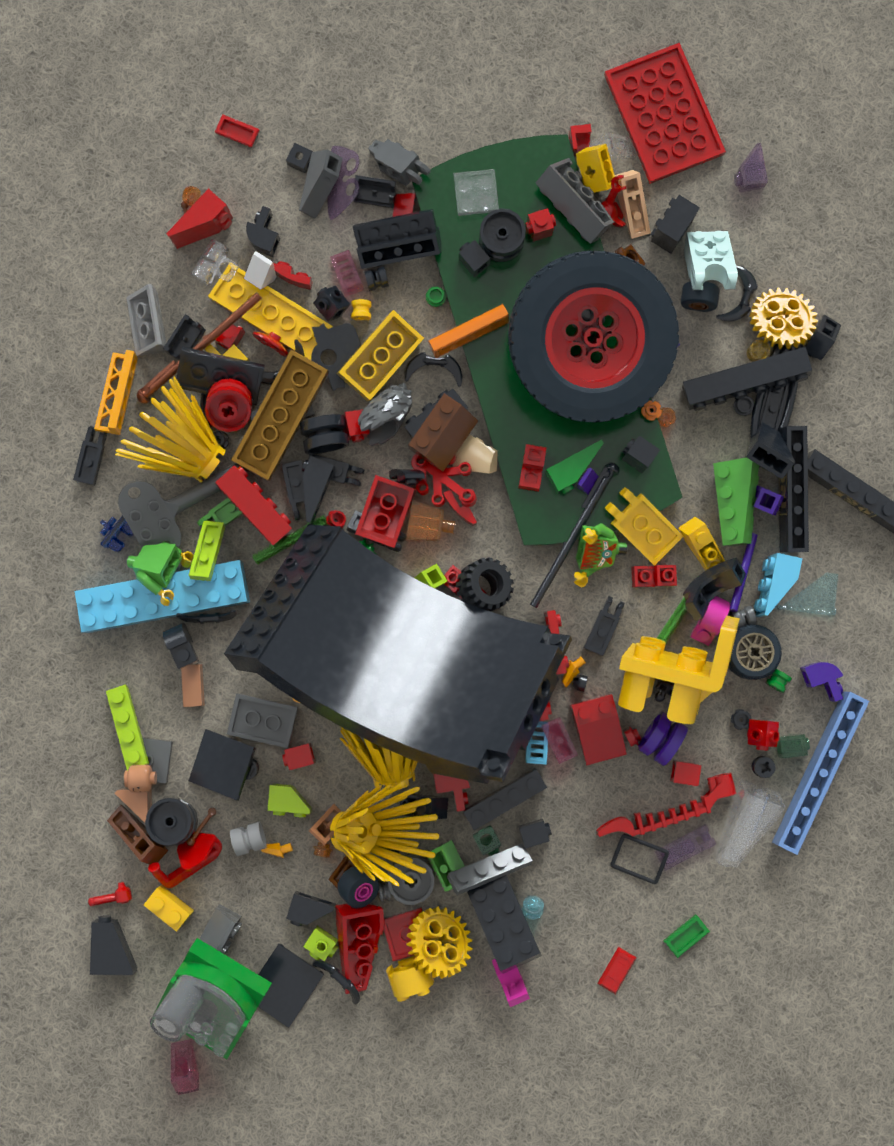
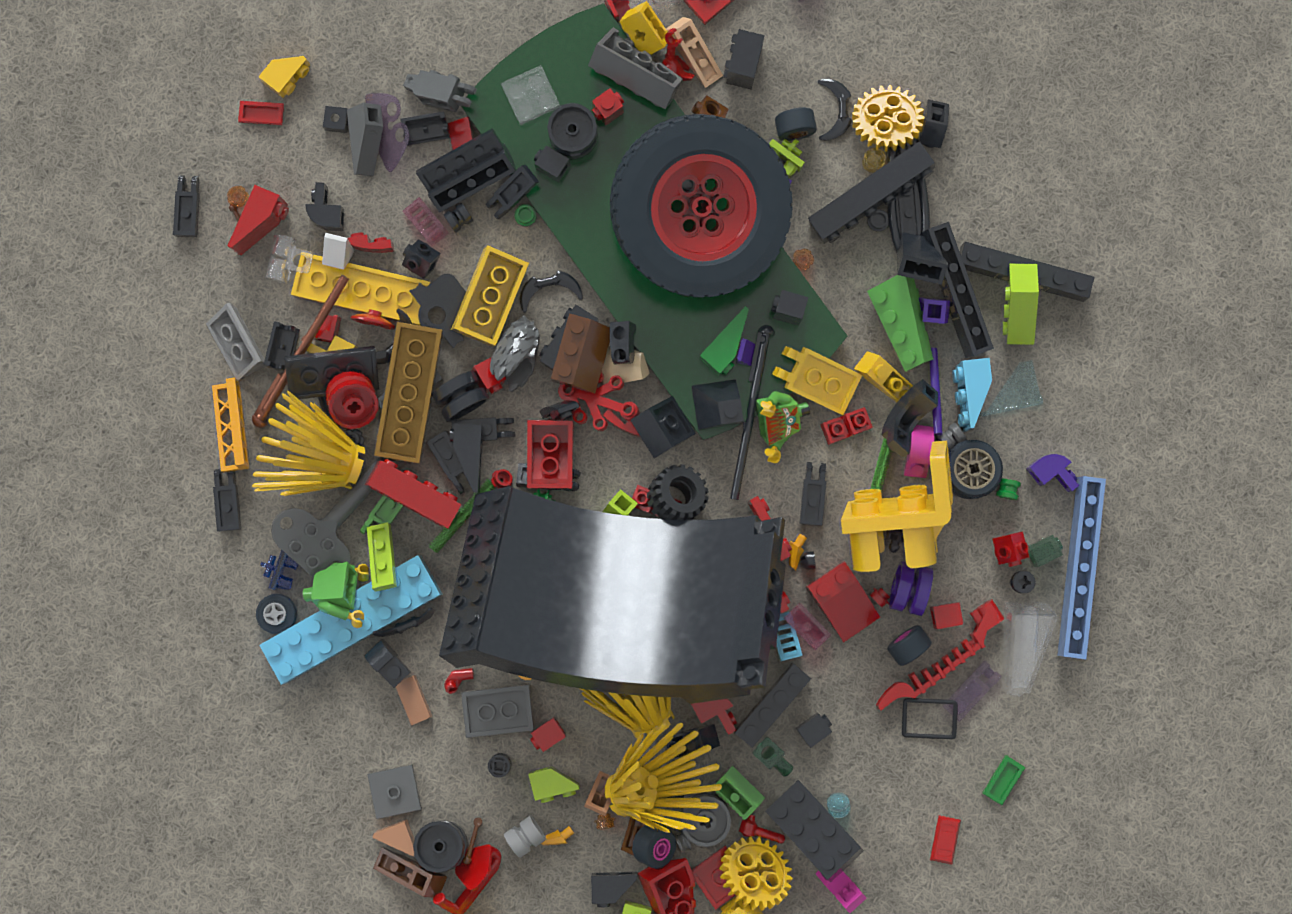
camera: 20 degrees left, 0 degrees up
(92, 566) = (268, 616): none -> black wheel
(127, 726) = (361, 766): lime plate -> none
(140, 778) = (393, 813): nougat head -> none
(144, 191) = (186, 208): none -> black hinge
(222, 764) = (472, 770): black piece -> none
(236, 679) = (456, 677): none -> red arm
(268, 103) = (283, 74): none -> yellow slope
(361, 309) = (453, 255): yellow wheel -> none
(427, 523) = (597, 451): clear orange torso -> none
(431, 271) = (513, 190): none -> black hinge
(448, 900) = (750, 828): none -> red piece
(469, 331) = (572, 240): orange brick -> none
(482, 434) = (622, 342): none -> black leg
(489, 869) = (781, 781): dark grey plate -> none
(492, 521) = (663, 426): none -> black container
(532, 467) = (684, 358): red slope -> none
(547, 518) = (717, 404): none -> black slope
(644, 788) = (909, 645): none -> black wheel
(651, 415) = (786, 264): orange plate -> none
(686, 322) = (792, 163): none -> lime hips
(710, 258) = (792, 83): light aqua brick -> none
(740, 713) = (977, 542): black plate -> none
(847, 521) = (1022, 304): none -> lime wedge

